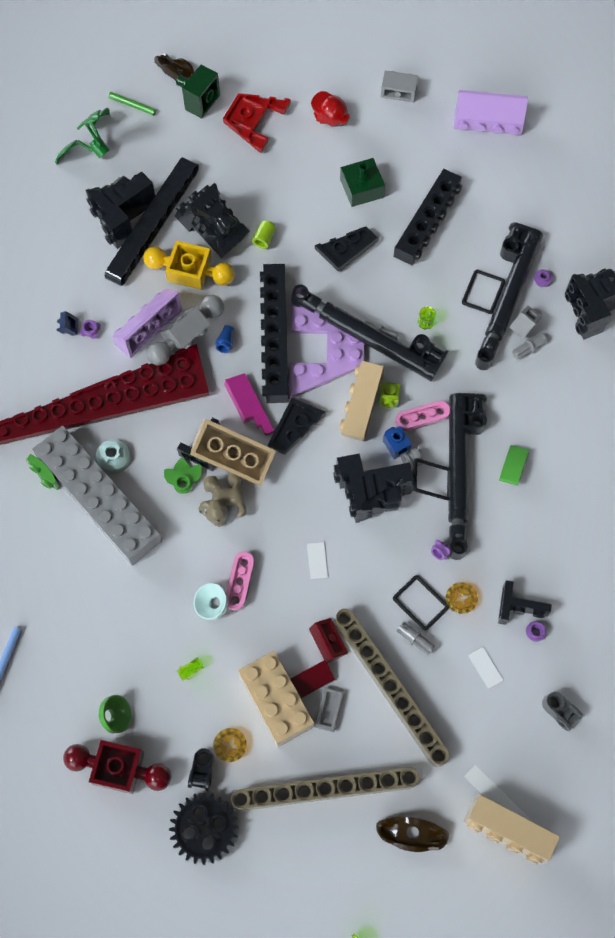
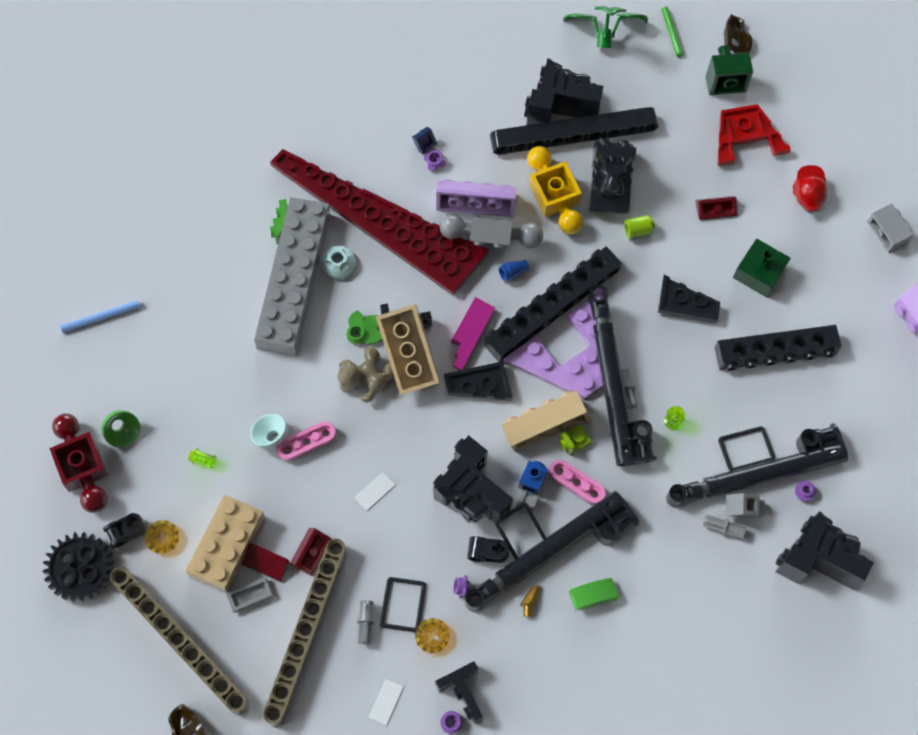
camera: 50 degrees right, 0 degrees up
(291, 176) = (716, 207): none -> dark red slope
(424, 514) = (484, 550): none -> black piece
(485, 512) = (530, 600): none -> pearl gold bar

